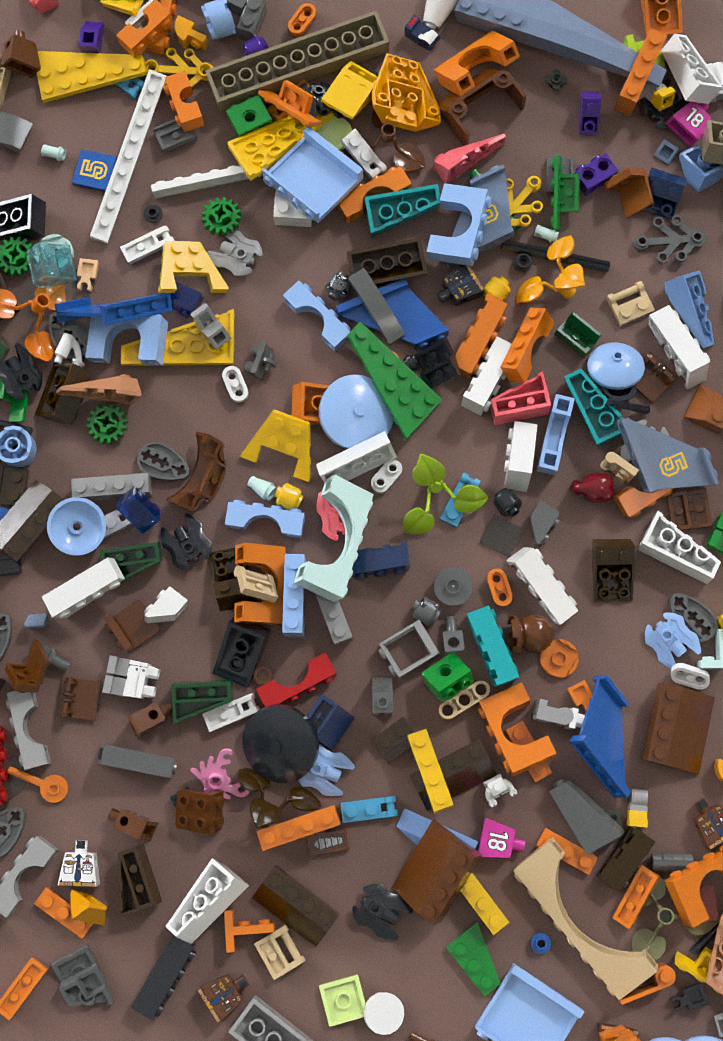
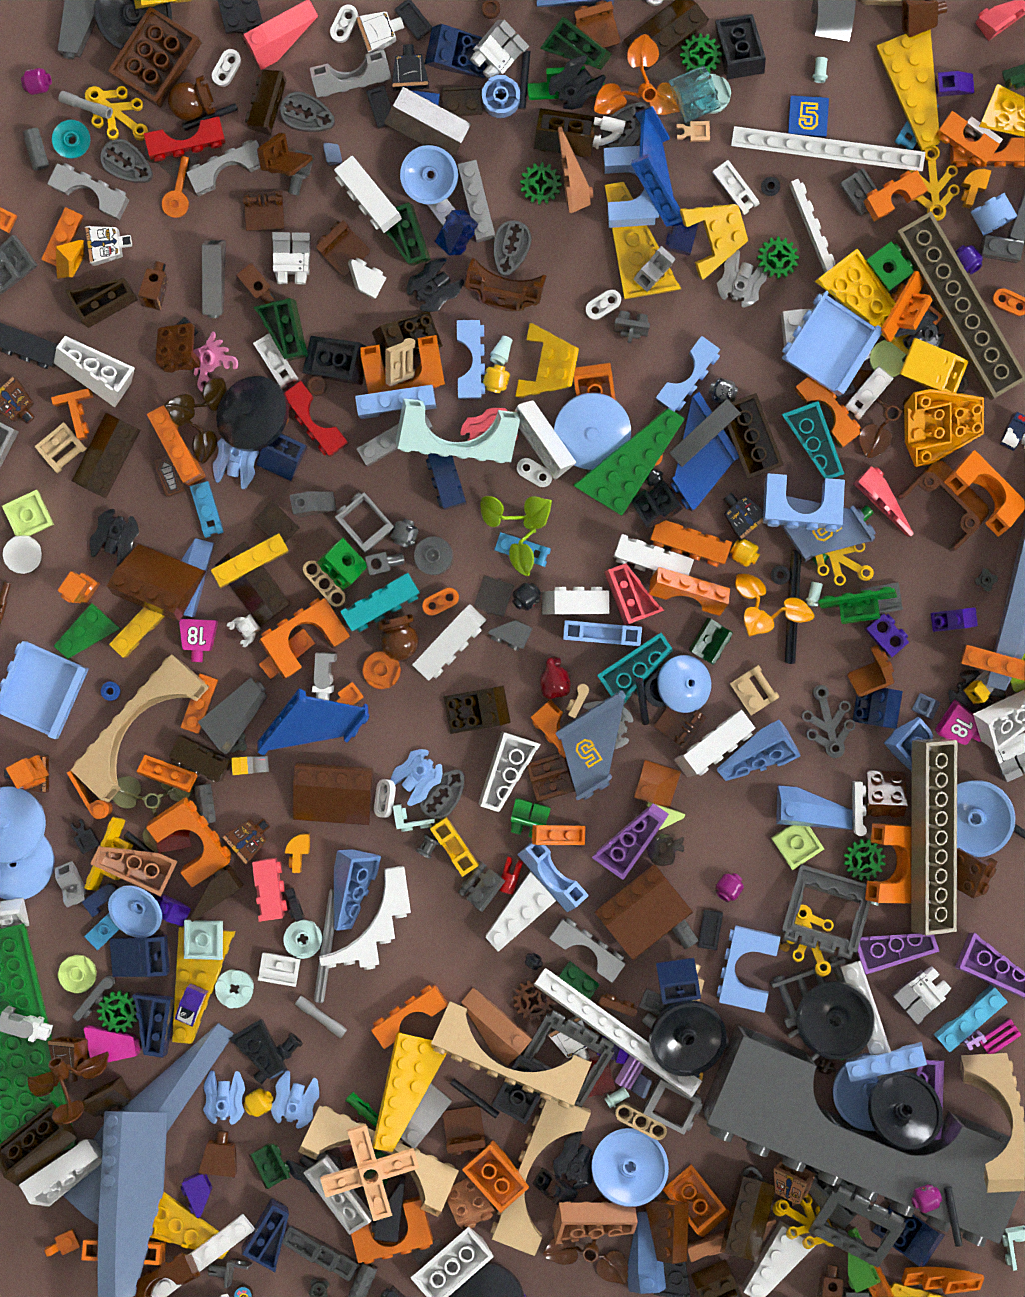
camera: 75 degrees right, 10 degrees up
(431, 956) = (78, 587): none -> orange arch

